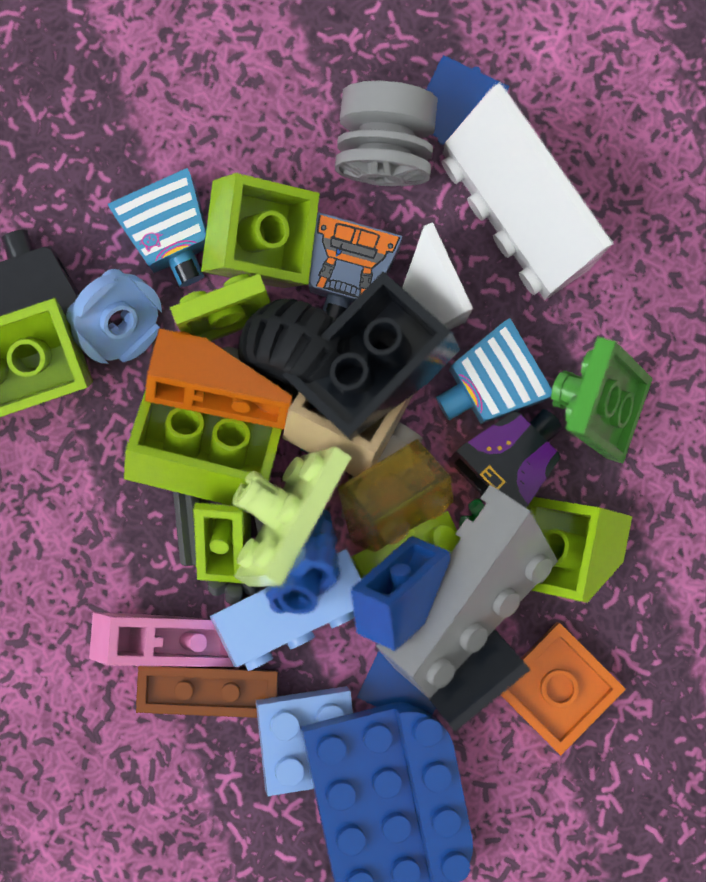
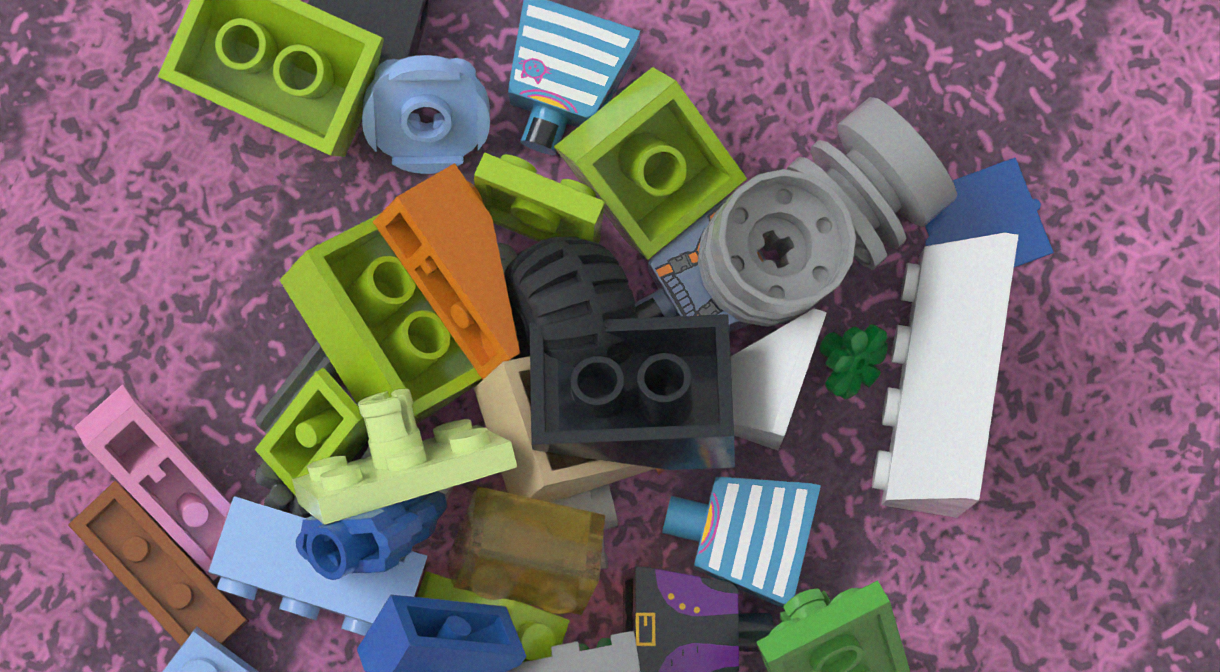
camera: 45 degrees right, 5 degrees down
(380, 188) = (782, 213): none -> light grey wheel
(462, 237) = (853, 359): none -> green plant

